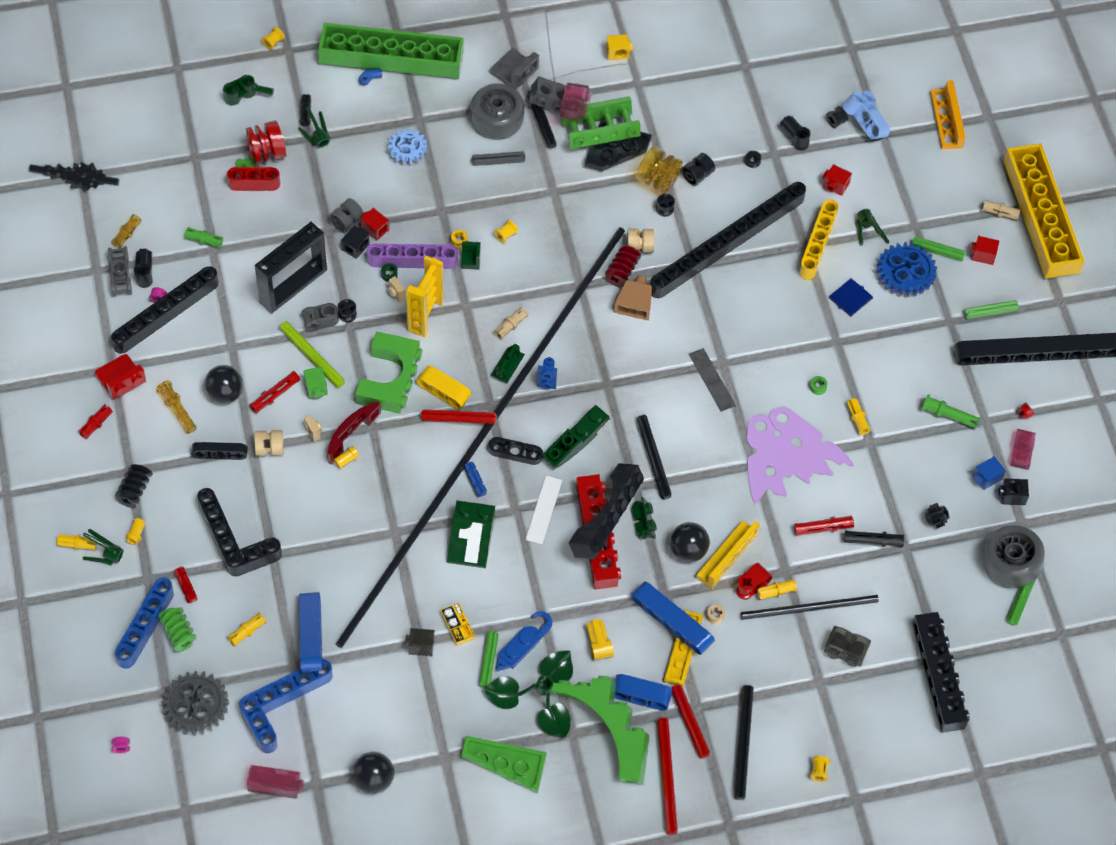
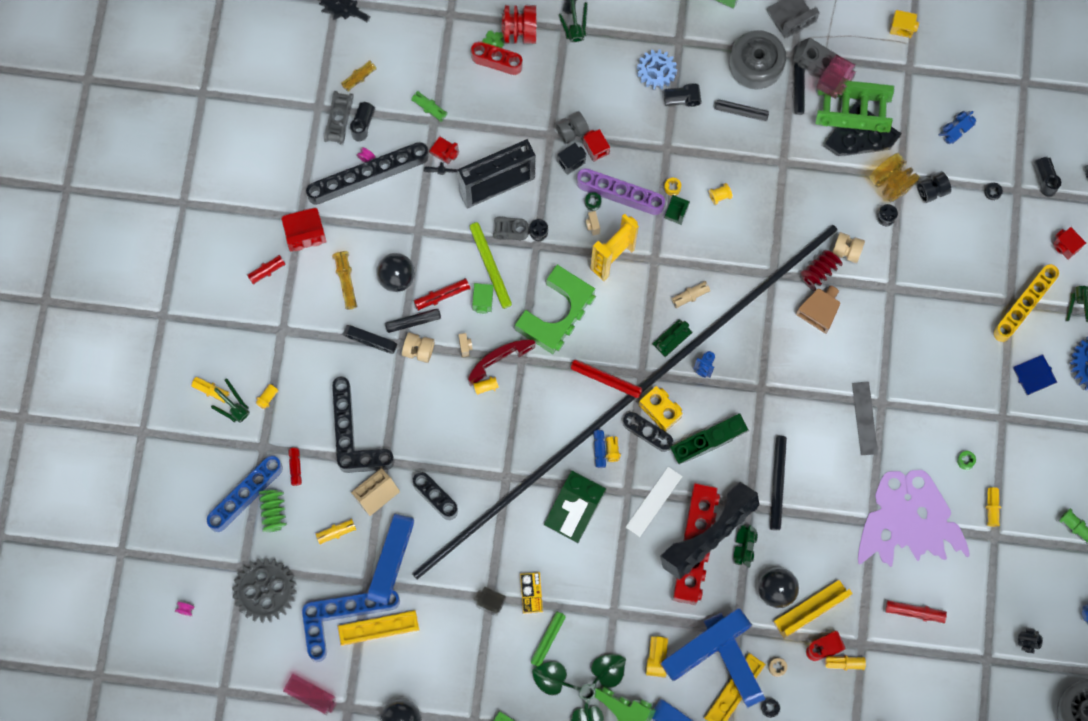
camera: 20 degrees right, 15 degrees up
(132, 484) = (278, 349): black piece -> none
(232, 270) = (445, 150): none -> red bracket
(235, 288) = (440, 170): none -> black piece
(255, 423) = (412, 320): none -> black axle
(273, 581) = (375, 492): none -> tan brick
(320, 702) = (378, 628): none -> yellow tile
(337, 574) = (428, 489): none -> black beam
(443, 159) = (688, 95): none -> black piece
(444, 387) = (602, 342): yellow beam -> none
(490, 479) = (612, 449): none -> yellow pin
(517, 430) = (656, 412): none -> yellow brick
(523, 643) = (586, 633): blue plate -> none
(641, 608) = (706, 644): none -> blue beam
(695, 120) = (963, 122): none -> blue hinge
(725, 656) = (770, 702): none -> black bush
(751, 223) = (942, 268): black beam -> none
(809, 607) = (871, 691): black piece -> none
(874, 538) = (981, 651): black pin -> none

